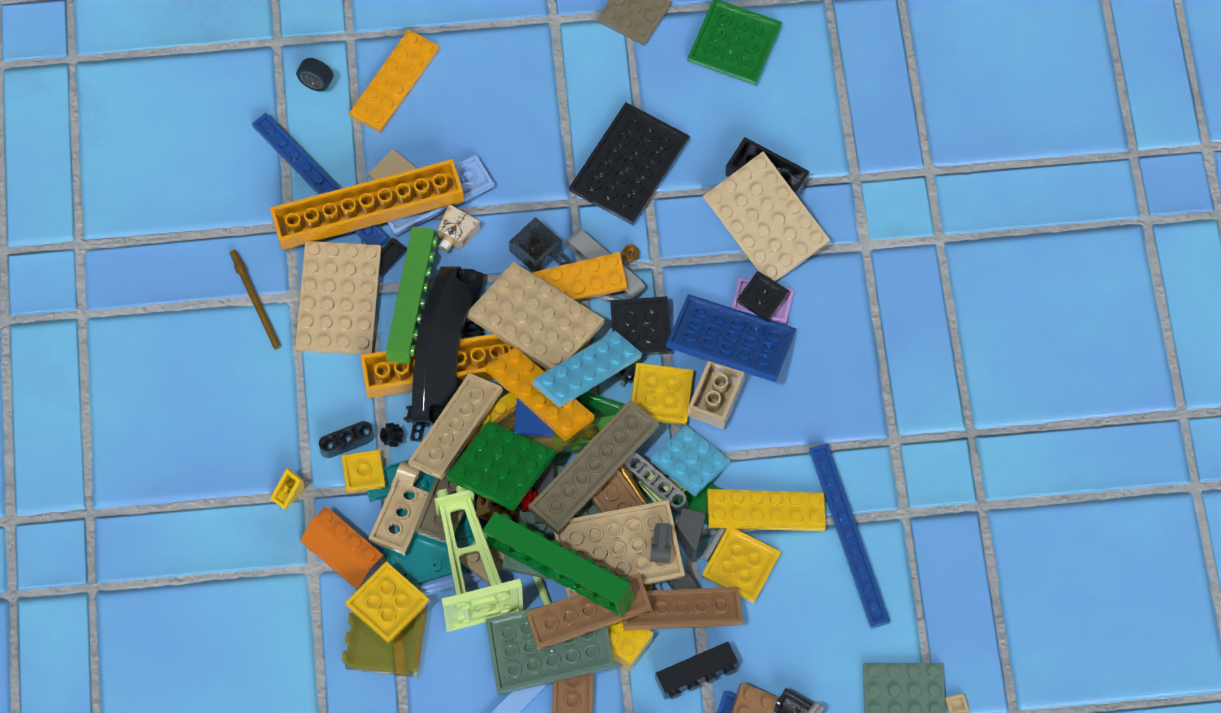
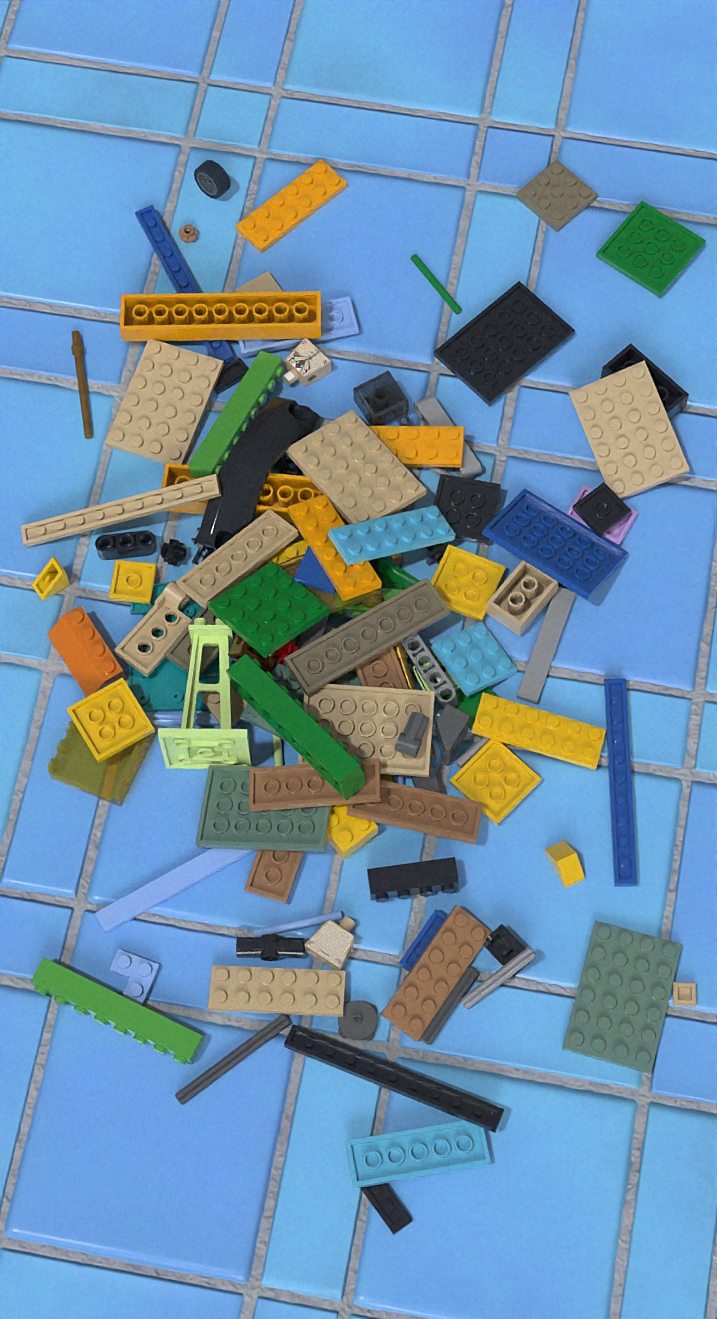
camera: 20 degrees right, 0 degrees up
(307, 135) = (188, 238): none -> medium nougat plate
(333, 410) = (120, 510): none -> tan plate
(552, 124) = (436, 284): none -> green bar
(627, 249) = (480, 428): pearl gold plate -> none
(749, 432) = (546, 645): none -> light grey tile
(823, 620) = (565, 863): none -> yellow slope

